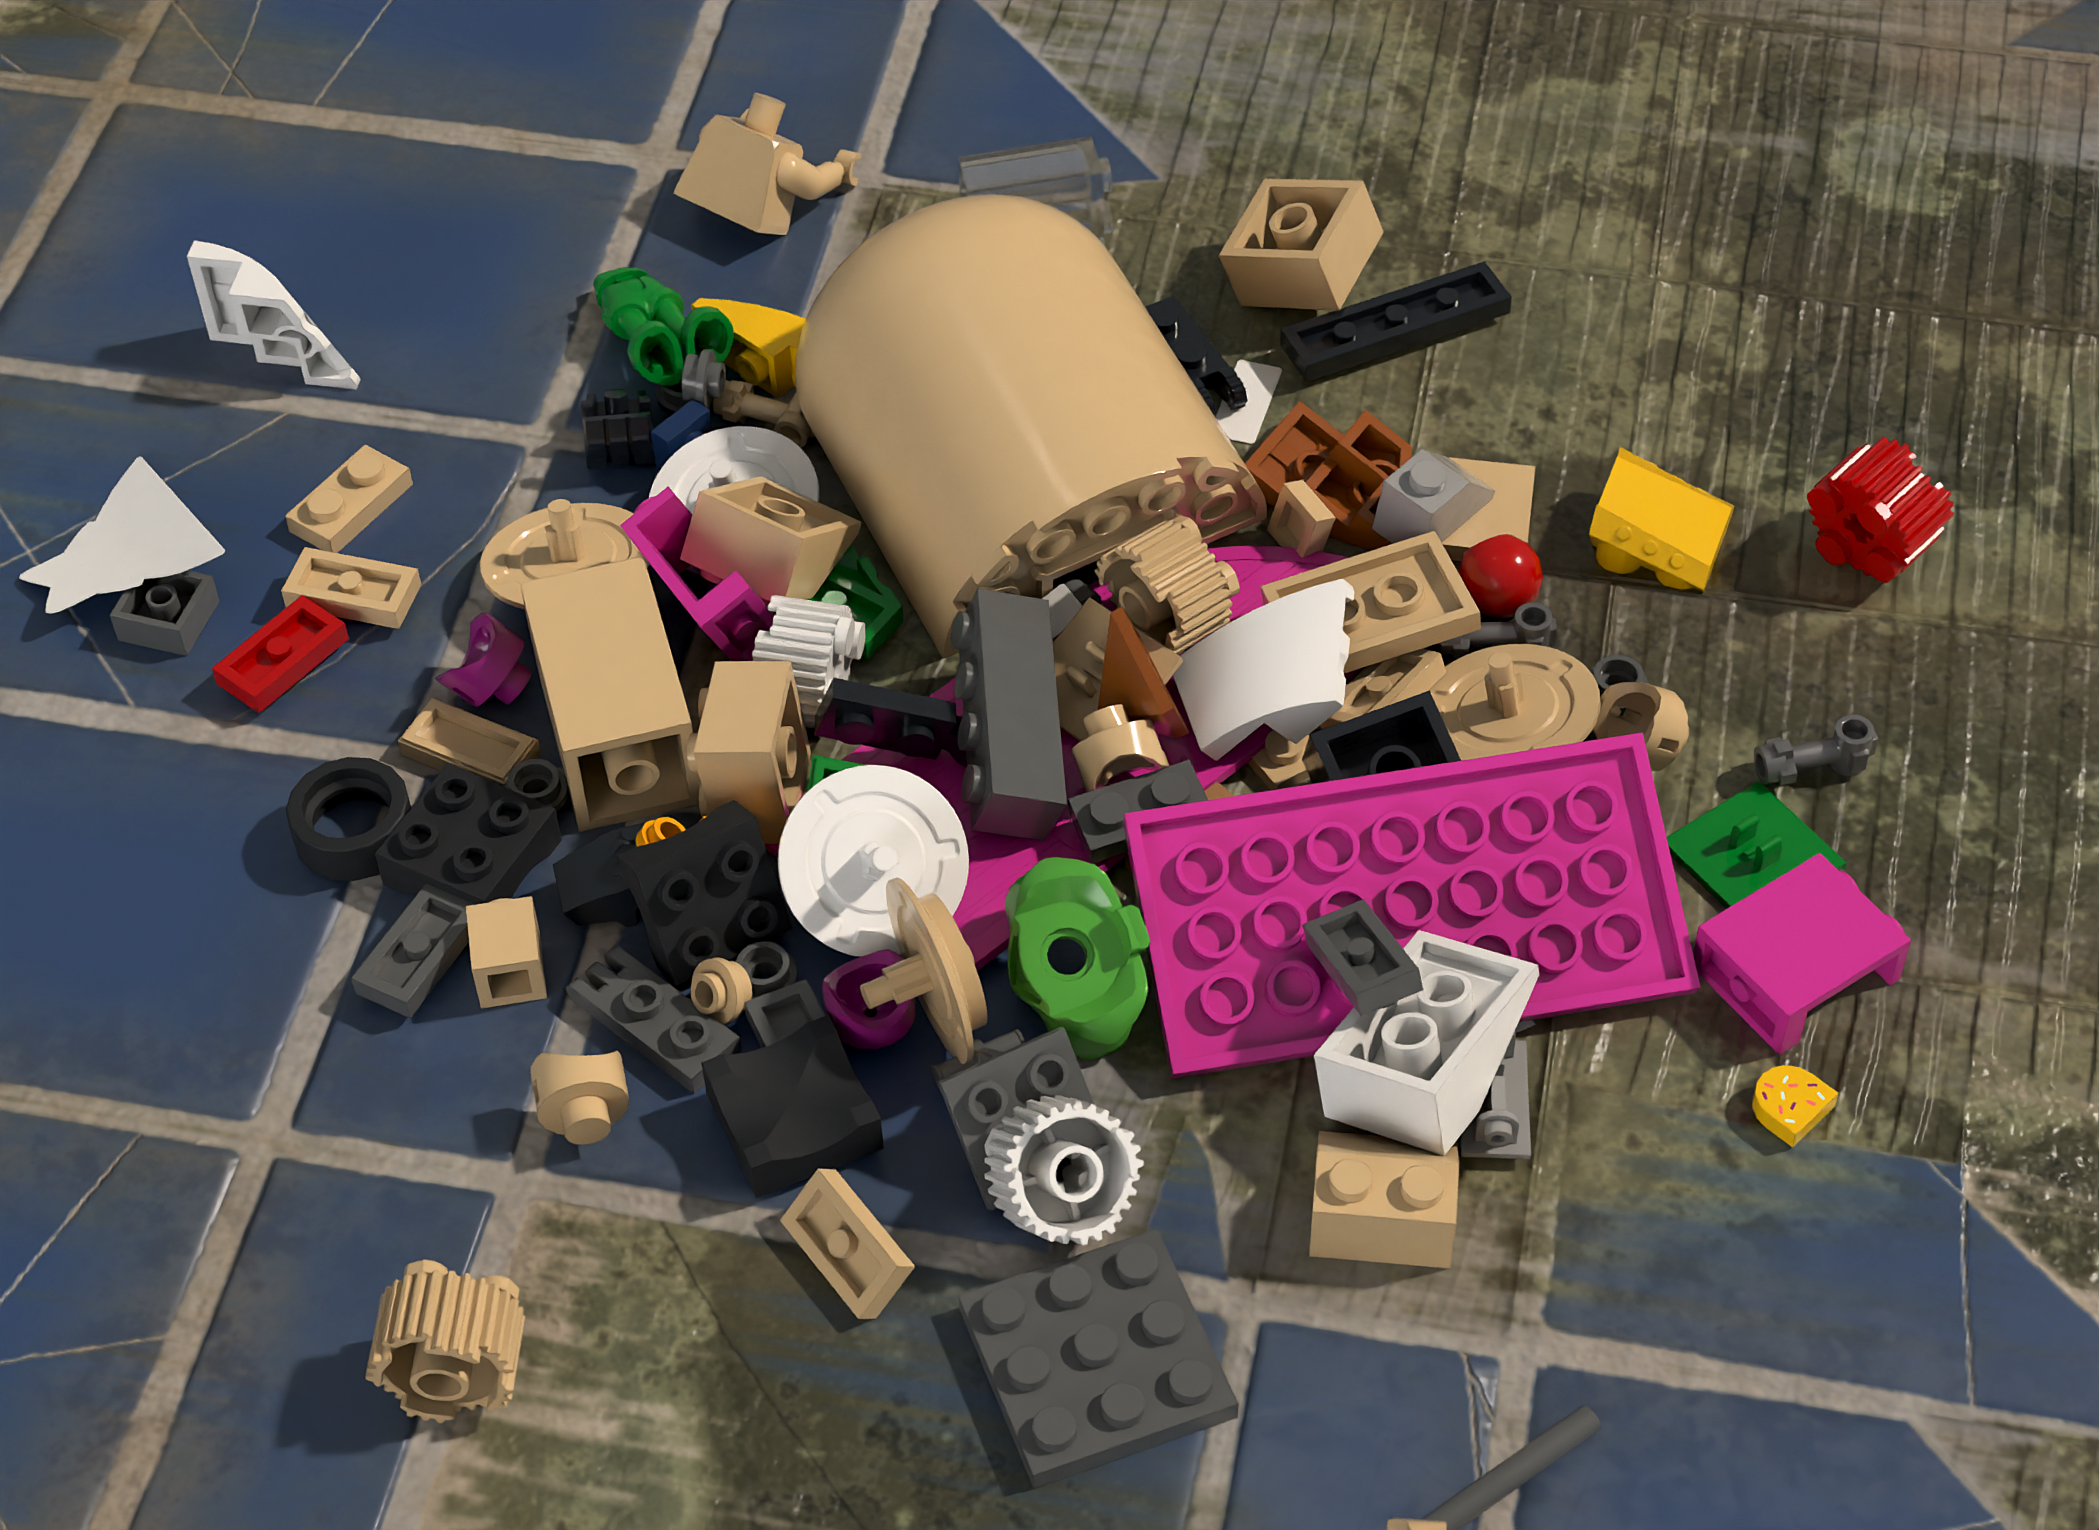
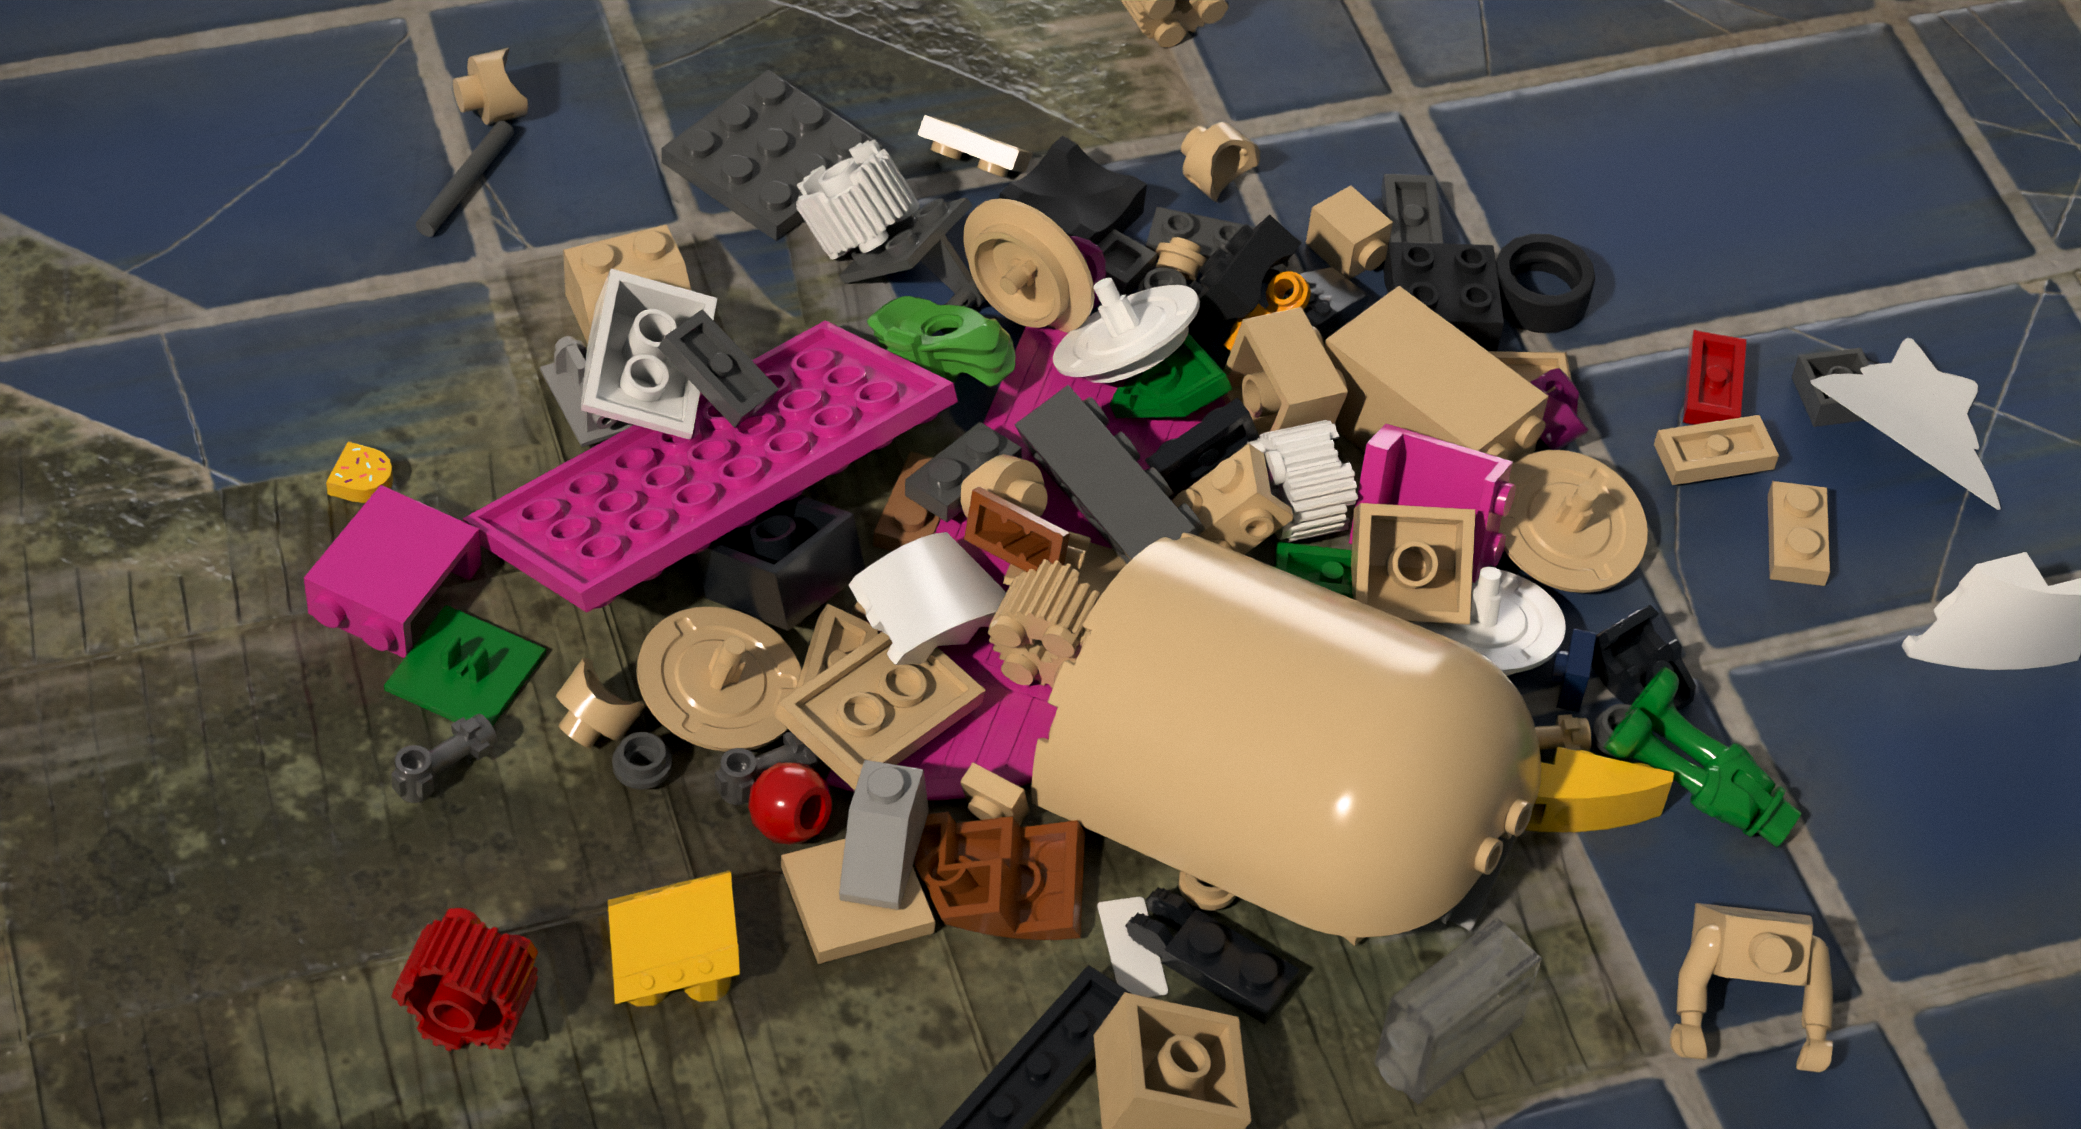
camera: 145 degrees right, 0 degrees up
(703, 378) = (1597, 699): dark grey plate -> none
(904, 646) = (1237, 502): none -> tan bracket

